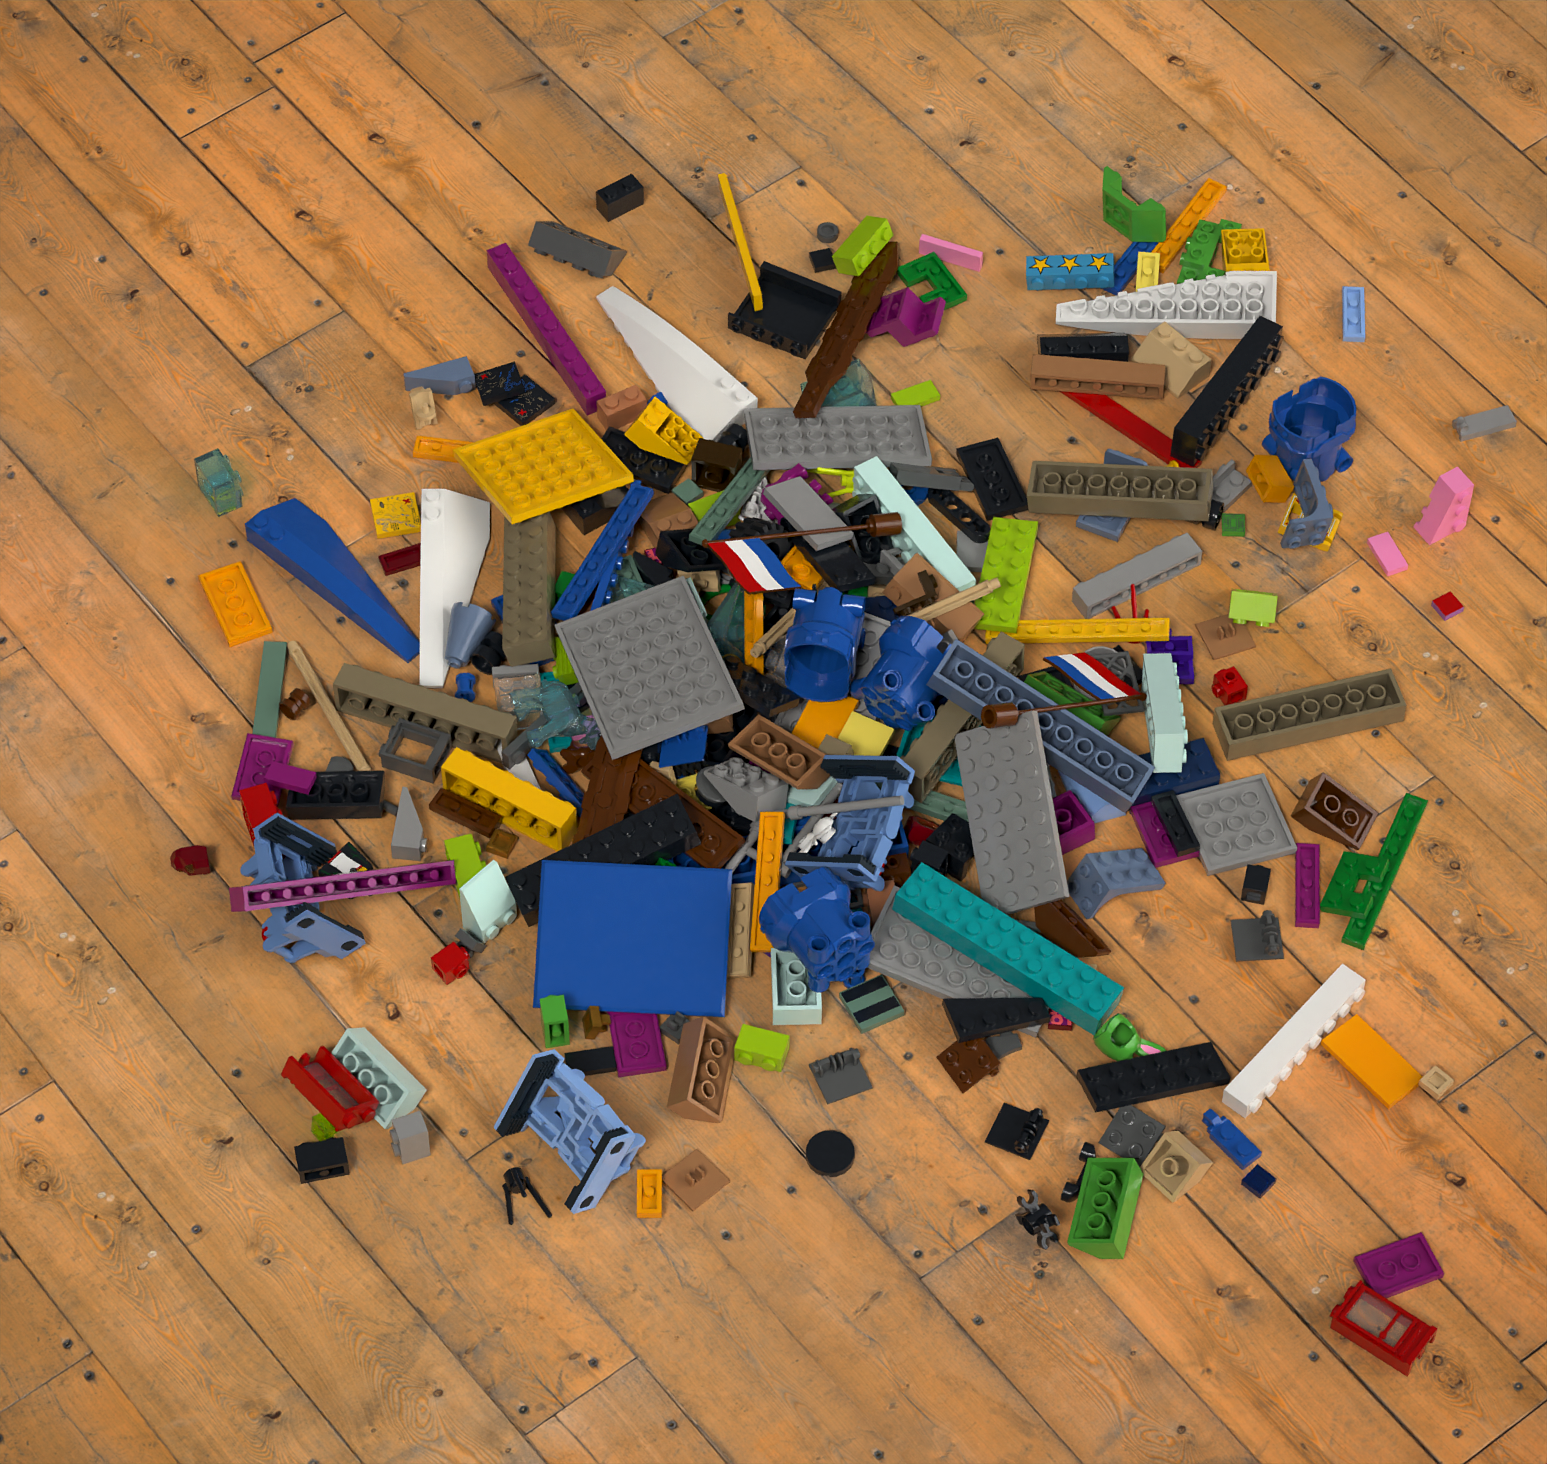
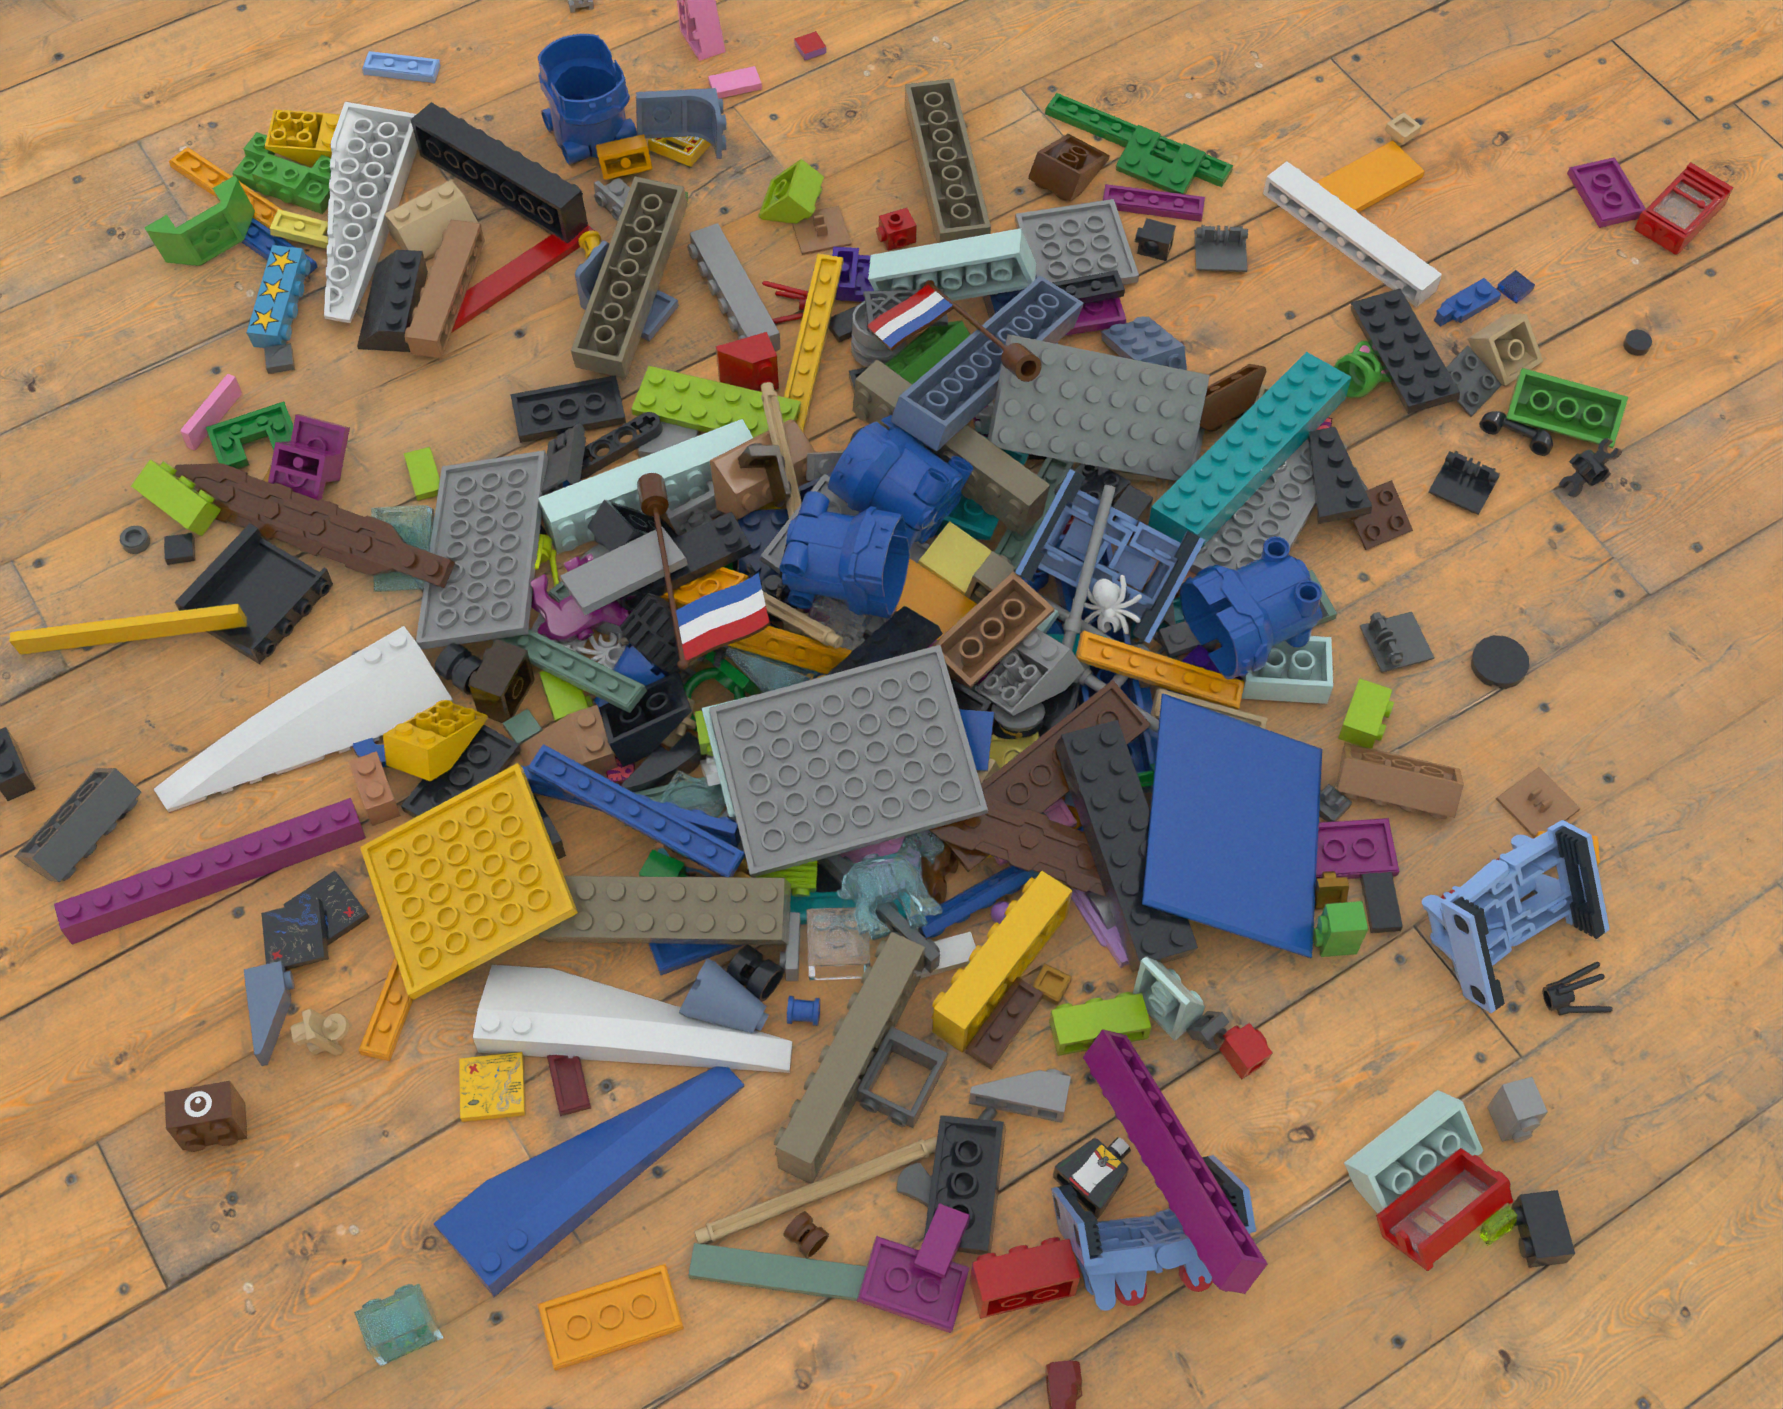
camera: 85 degrees left, 5 degrees up
(356, 356) = (205, 1116): none -> reddish brown brick
(1015, 287) = (279, 358): none -> dark grey tile
(1050, 591) = (748, 362): none -> red slope
(1207, 1281) = (1637, 342): none -> black tile

